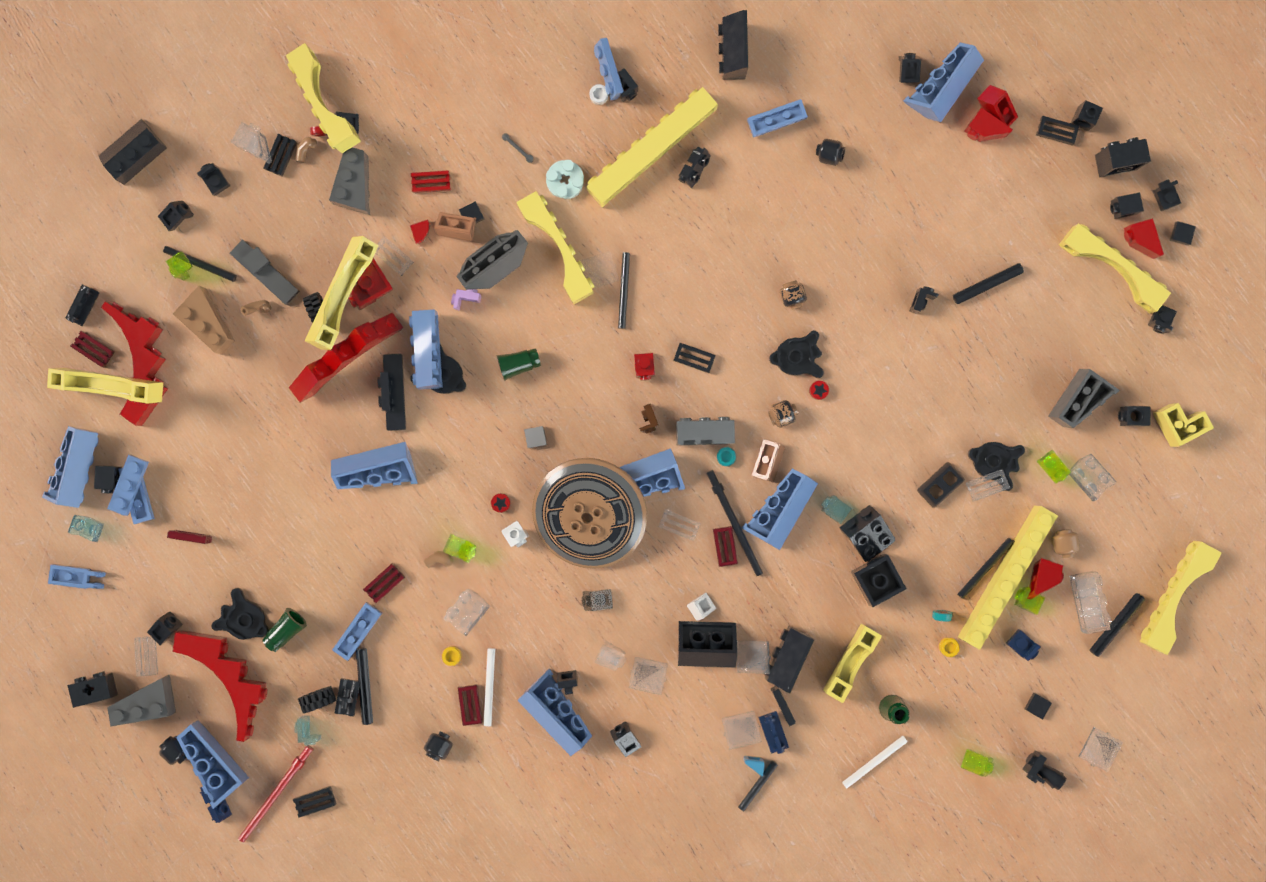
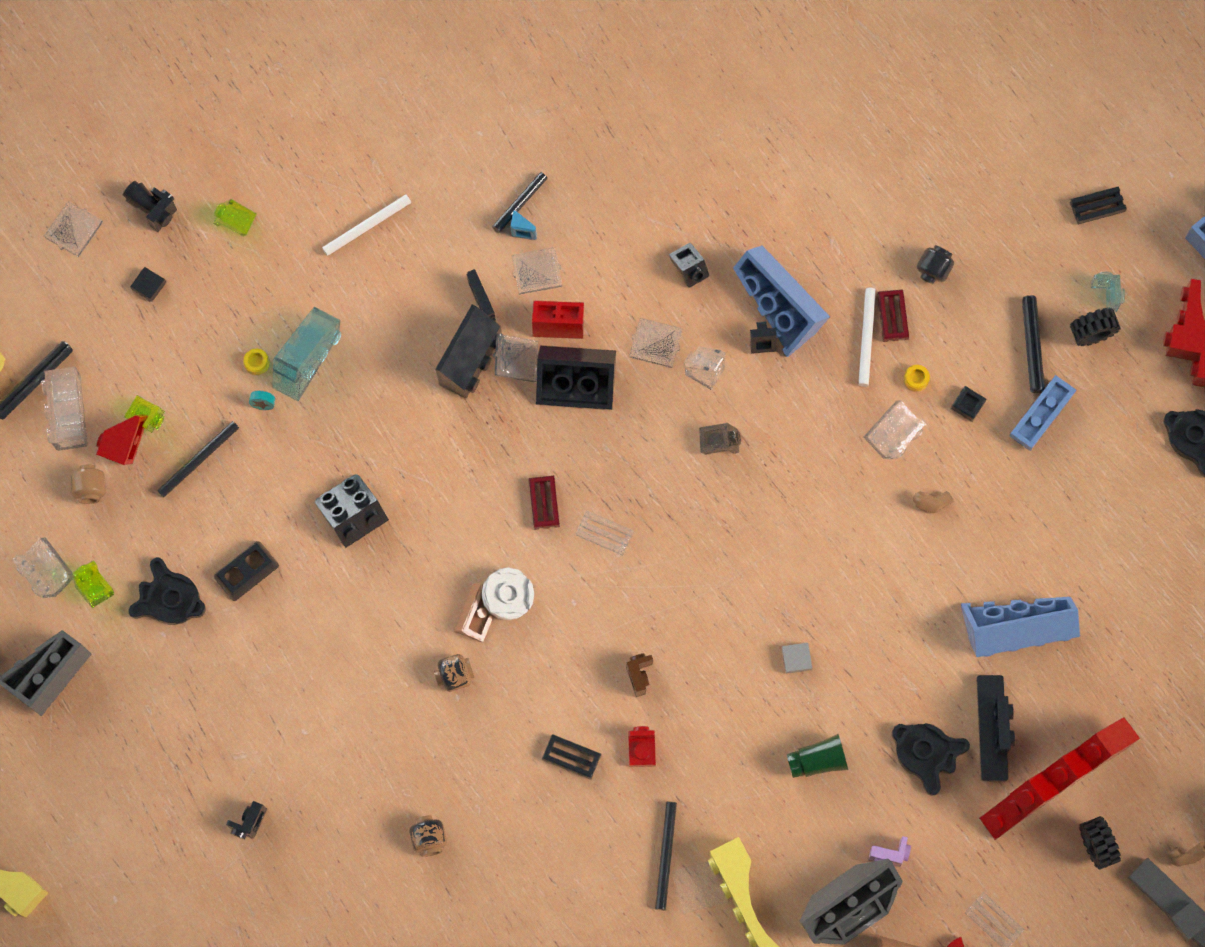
camera: 175 degrees left, 15 degrees down
(284, 629) = (1140, 418): dark green plant -> none
(297, 764) = (1121, 250): bar -> none
(327, 321) = (1084, 813): light yellow arch -> none
(347, 697) = (1055, 329): black hips -> none
(369, 287) = (1033, 880): red plate -> none
(371, 594) = (1023, 460): dark red tile -> none
(412, 637) = (968, 403): none -> black tile
(426, 349) = (945, 779): medium blue wedge -> none
(460, 548) = (902, 513): clear neon green bracket -> none
(500, 502) = (847, 572): red tile -> none
(515, 534) = (827, 525): white bracket -> none
(595, 489) = (721, 576): dish -> none
(656, 473) = (652, 595): medium blue wedge -> none
(701, 607) = (580, 426): white slope -> none
(705, 431) = (563, 652): wedge -> none
(719, 490) = (548, 575): black bar -> none
(723, 689) = (558, 319): none -> red hinge
(726, 456) = (535, 620): teal tile -> none
(747, 474) = (507, 594): none -> white tile
(774, 732) = (494, 265): dark blue hinge -> none
(782, 509) = (465, 543): medium blue wedge -> none
(797, 356) = (427, 752): black tile -> none
(819, 390) = (401, 704): red tile -> none
(835, 508) = (392, 544): clear light blue bracket -> none
(857, 651) = (399, 329): light yellow arch -> none
(878, 580) = (343, 446): black brick -> none
(890, 705) = (336, 286): dark green plant -> none
(913, 654) = (304, 353): none -> clear light blue wedge
(988, 283) = (153, 840): black axle -> none
(991, 491) = (181, 561): clear tile -> none
(1007, 576) = (170, 445): light yellow brick -> none
(1023, 645) = (158, 358): dark blue bracket -> none

